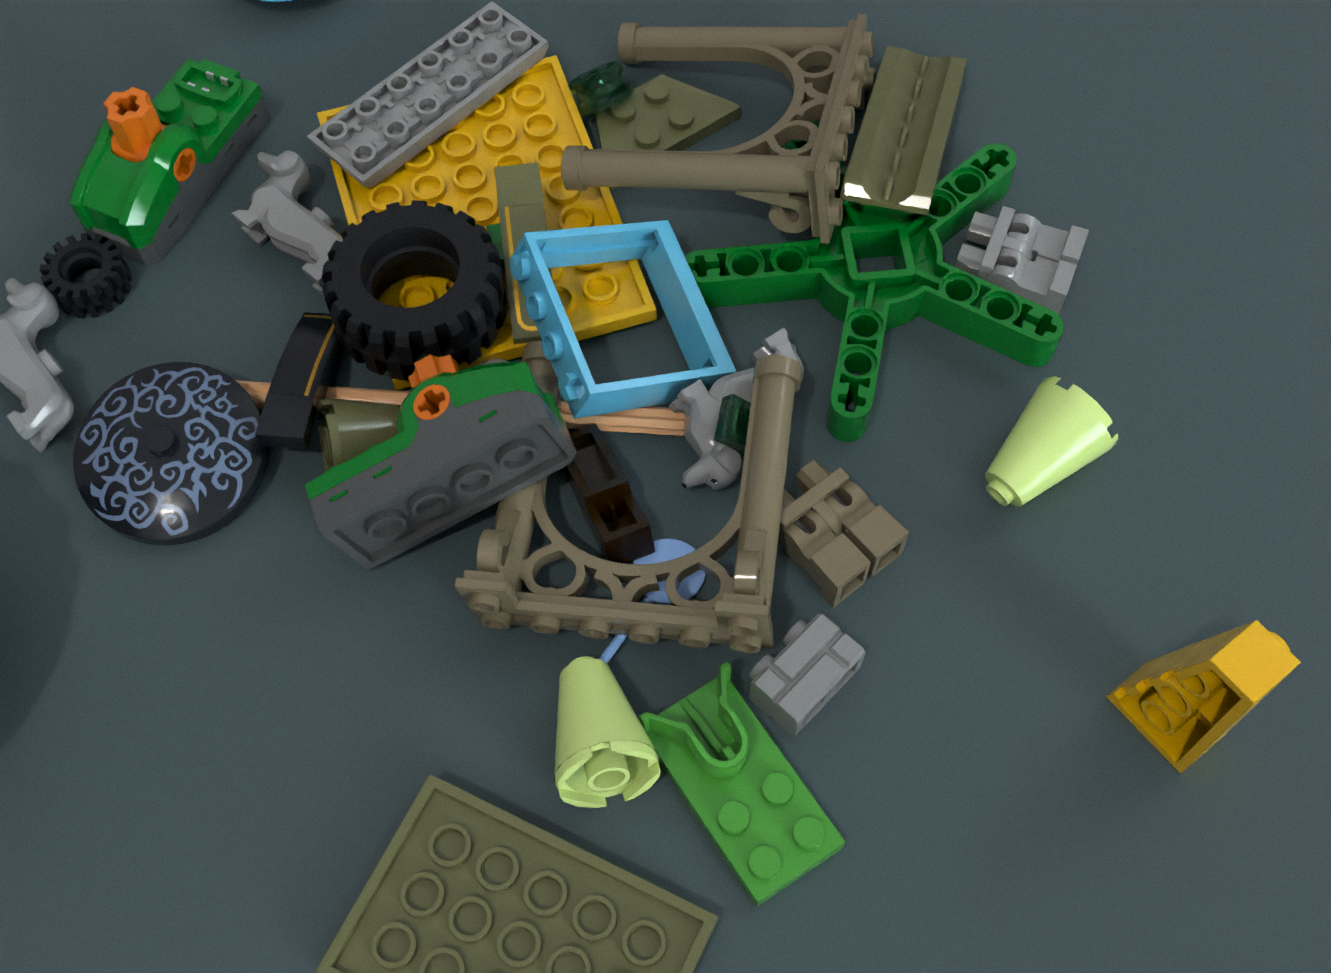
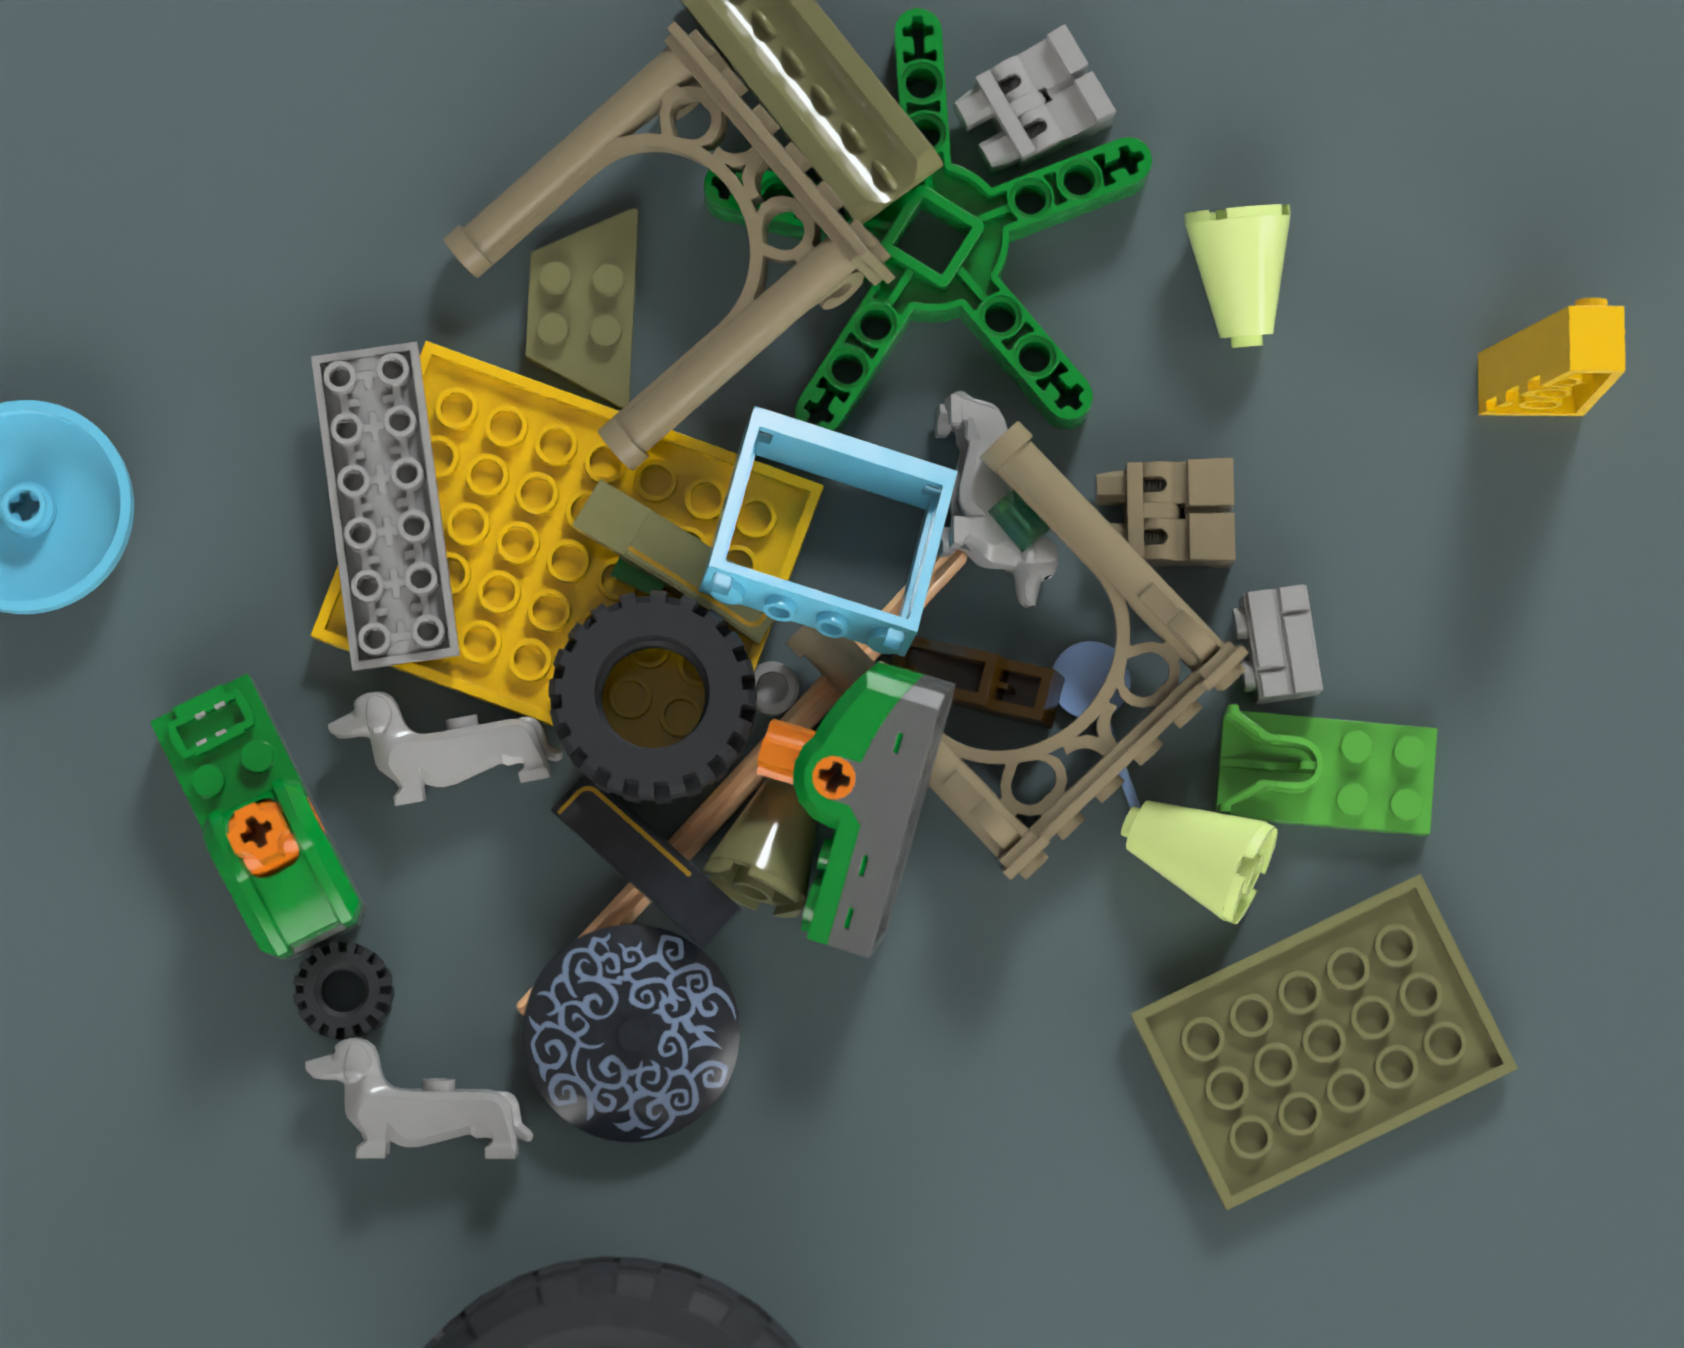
camera: 55 degrees left, 20 degrees up
(600, 88) = (509, 331): clear green wheel -> none

